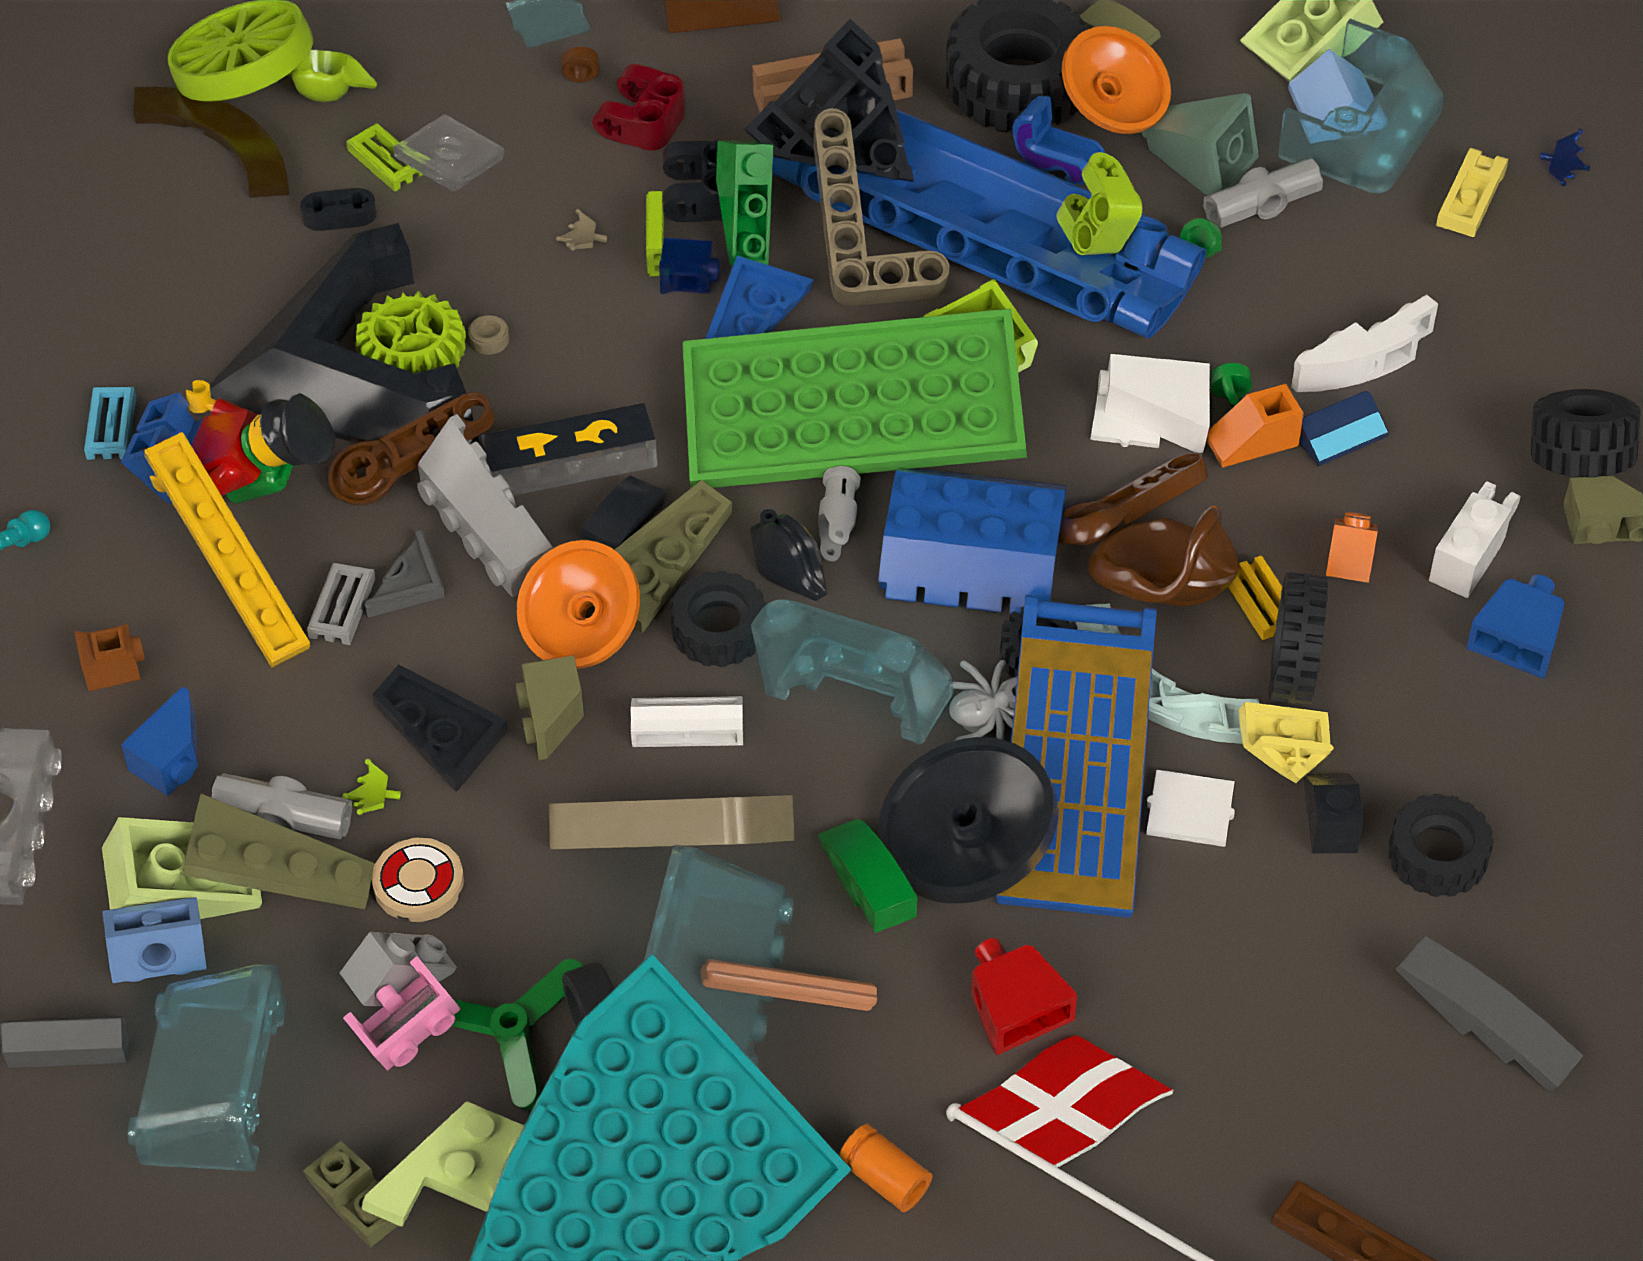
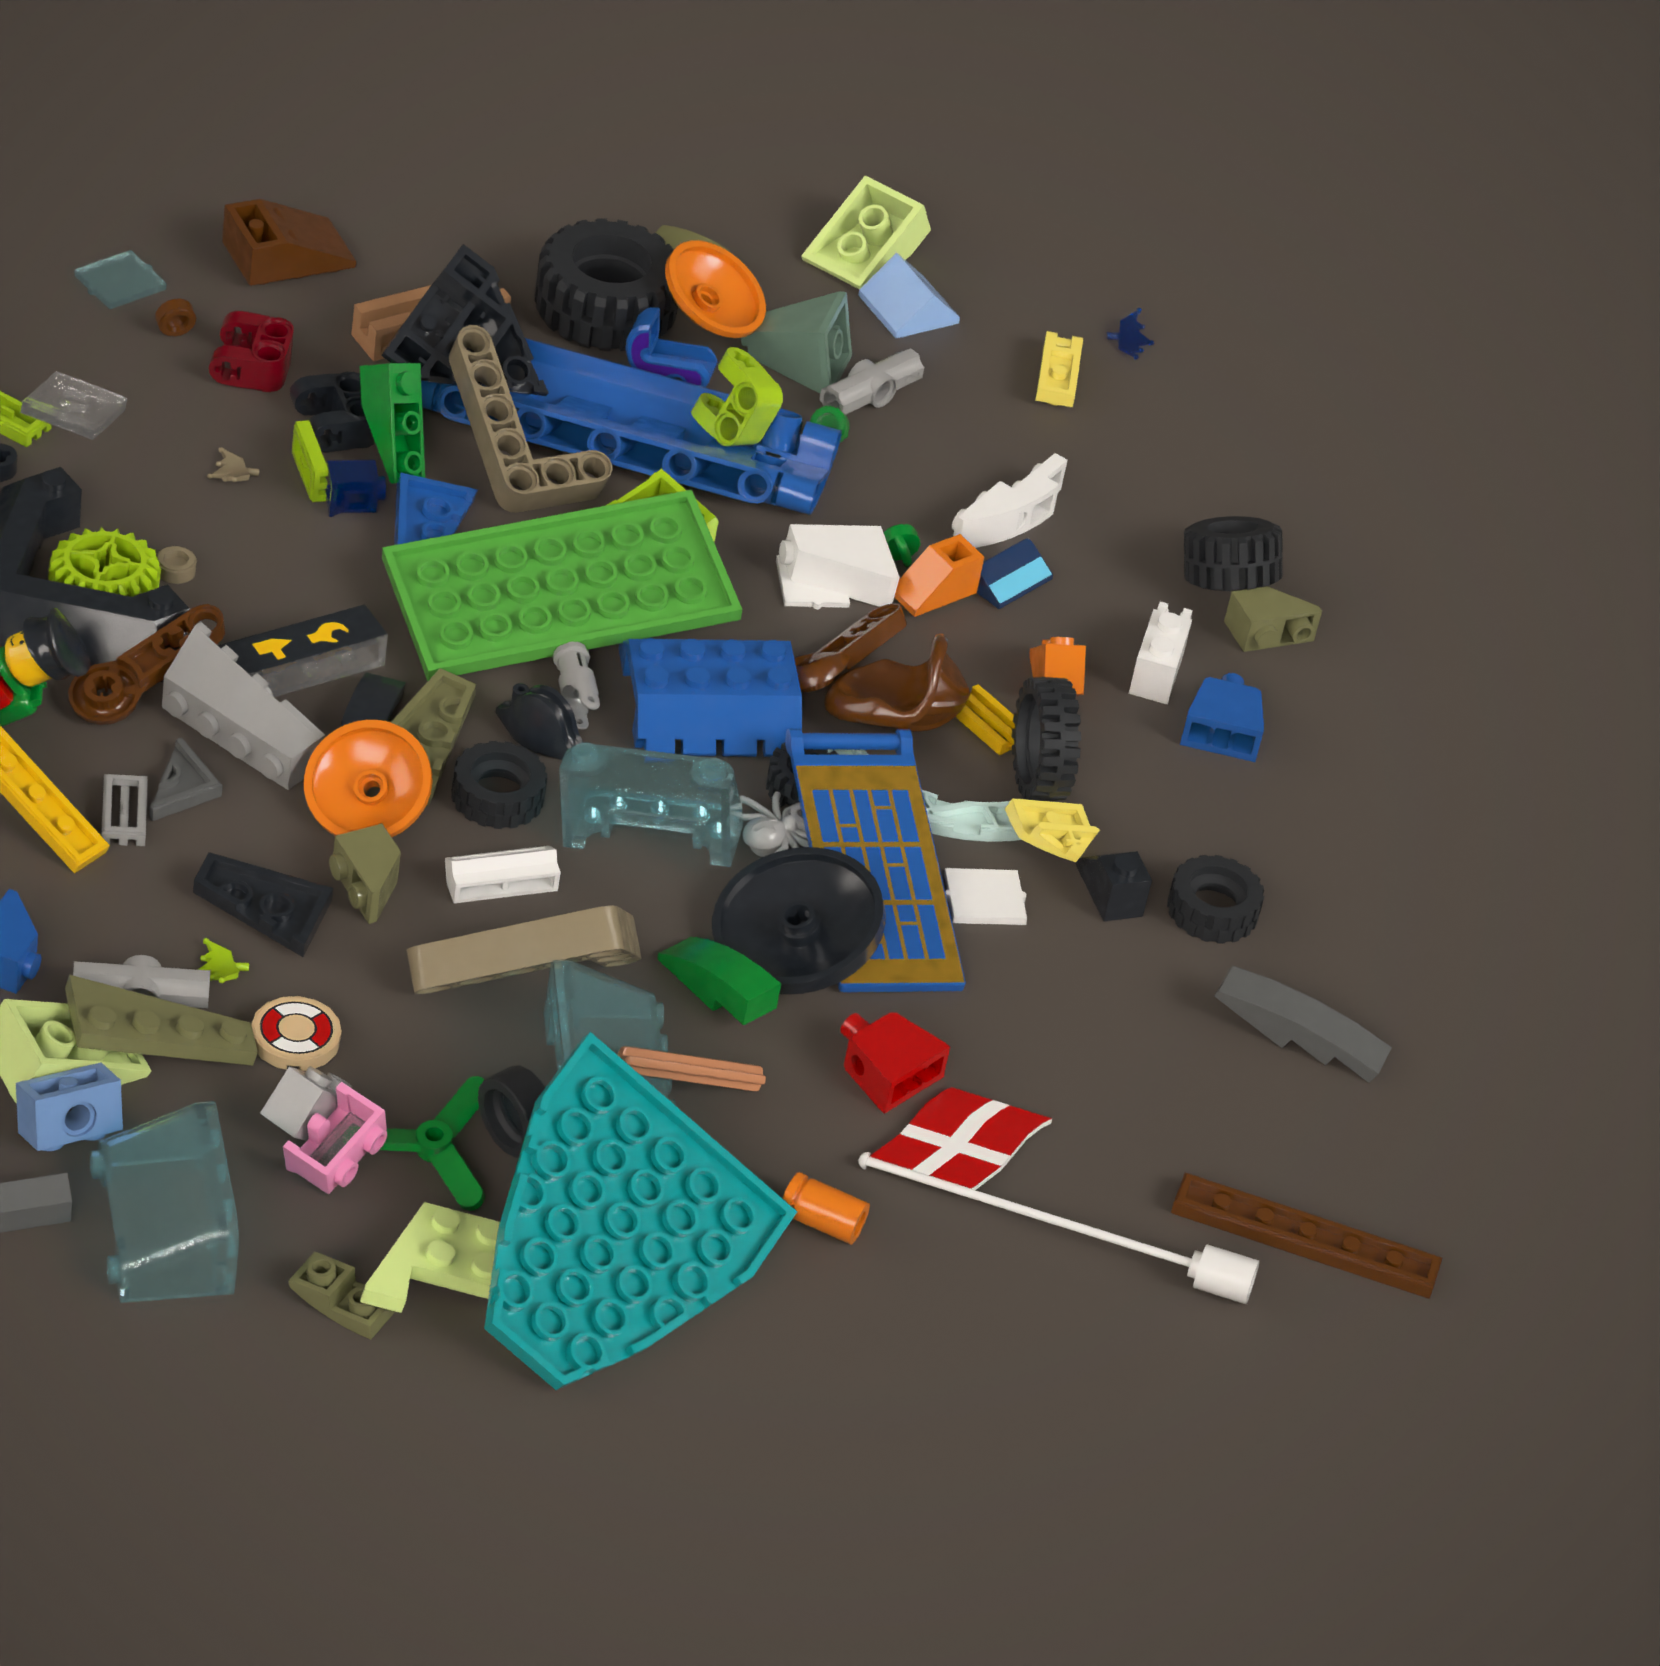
camera: 25 degrees left, 10 degrees down
(1375, 144) = (945, 333): clear light blue windscreen -> none

